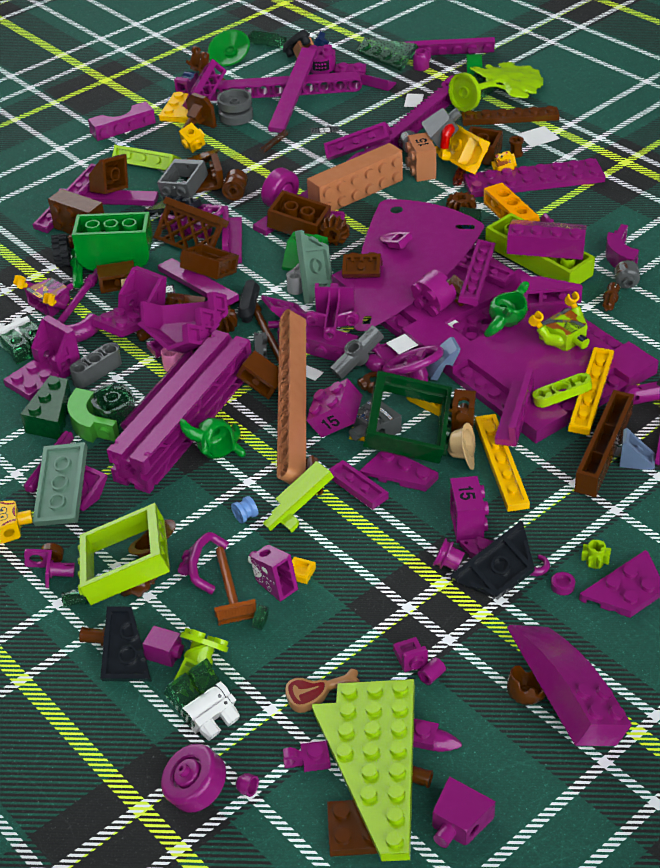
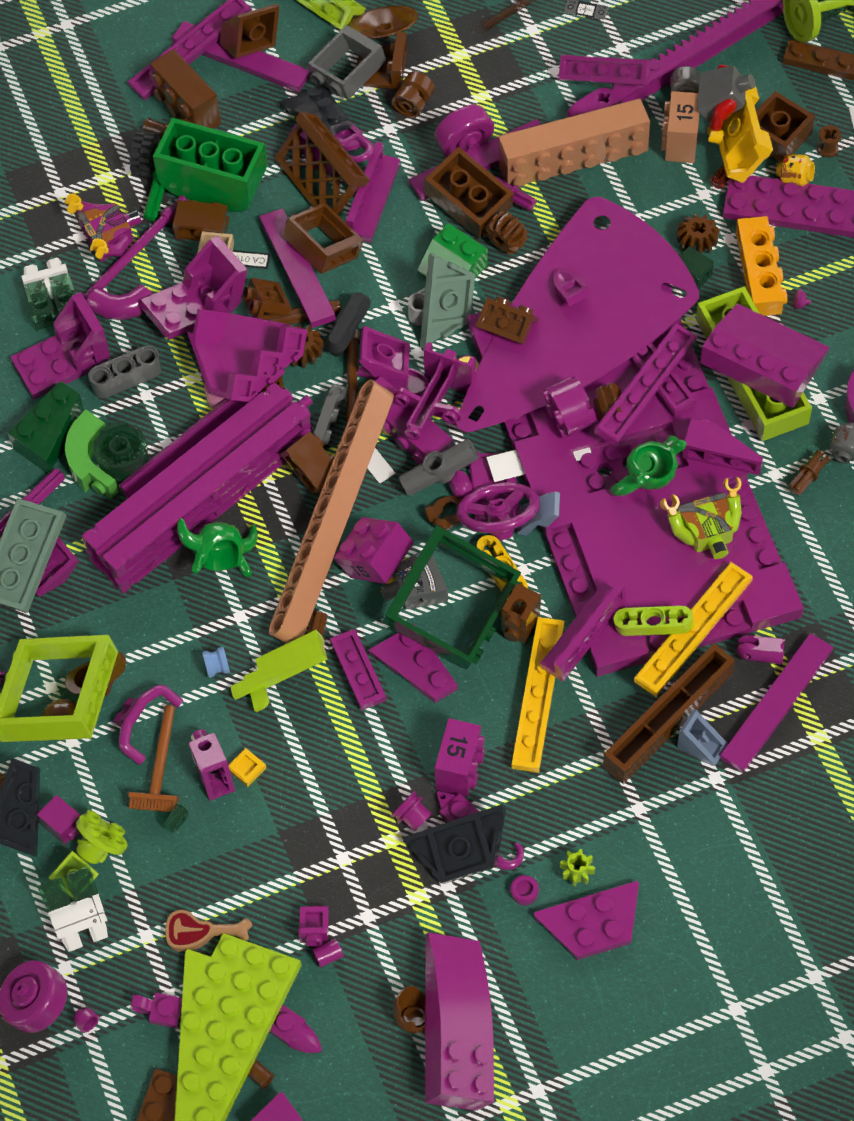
camera: 20 degrees right, 20 degrees up
(463, 444) = (502, 658): tan piece -> none

